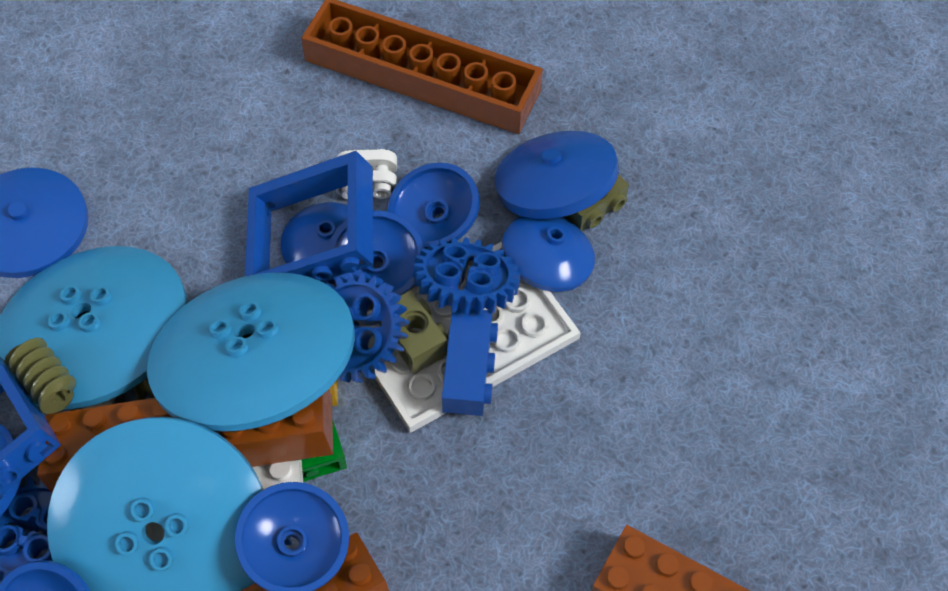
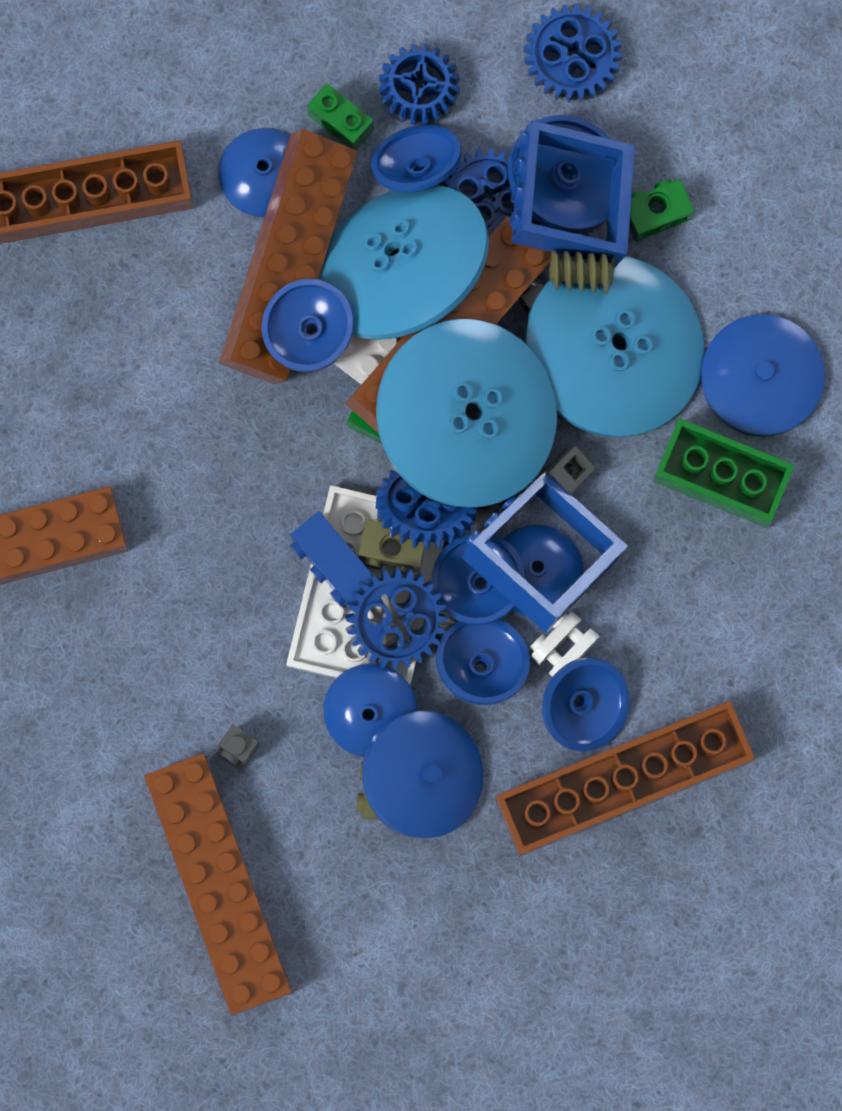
camera: 135 degrees right, 20 degrees up
(130, 177) = (723, 473): none -> green brick
(222, 269) = (579, 467): none -> dark grey brick
(395, 124) = (601, 706): none -> blue dish
(674, 309) = (237, 747): none -> dark grey brick
(776, 241) = (218, 884): none -> dark orange brick

